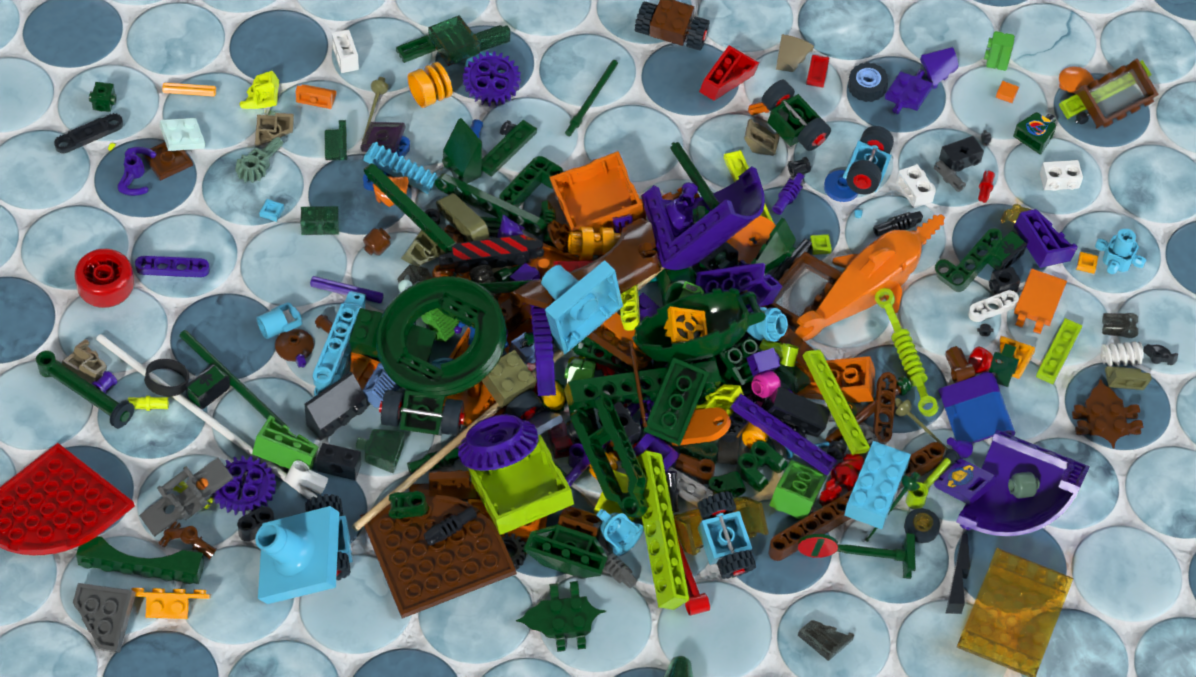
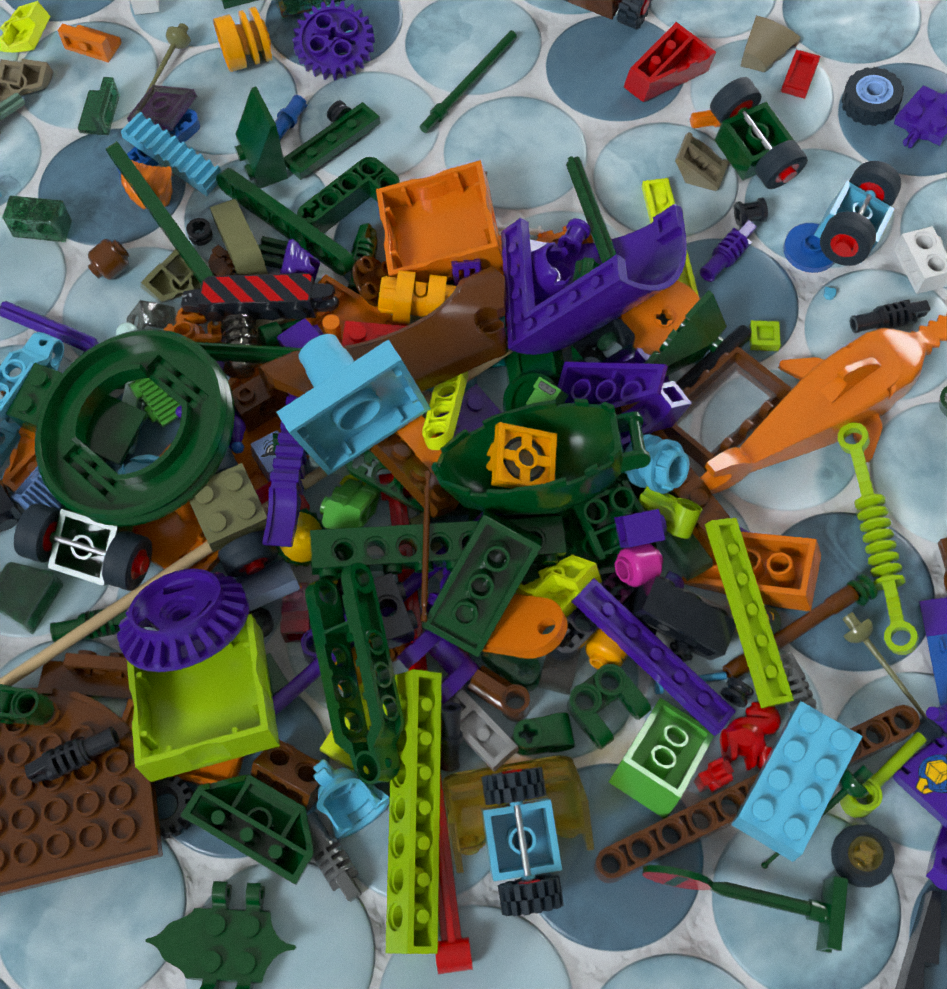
camera: 15 degrees right, 10 degrees up
(887, 409) = (832, 631): reddish brown beam -> none

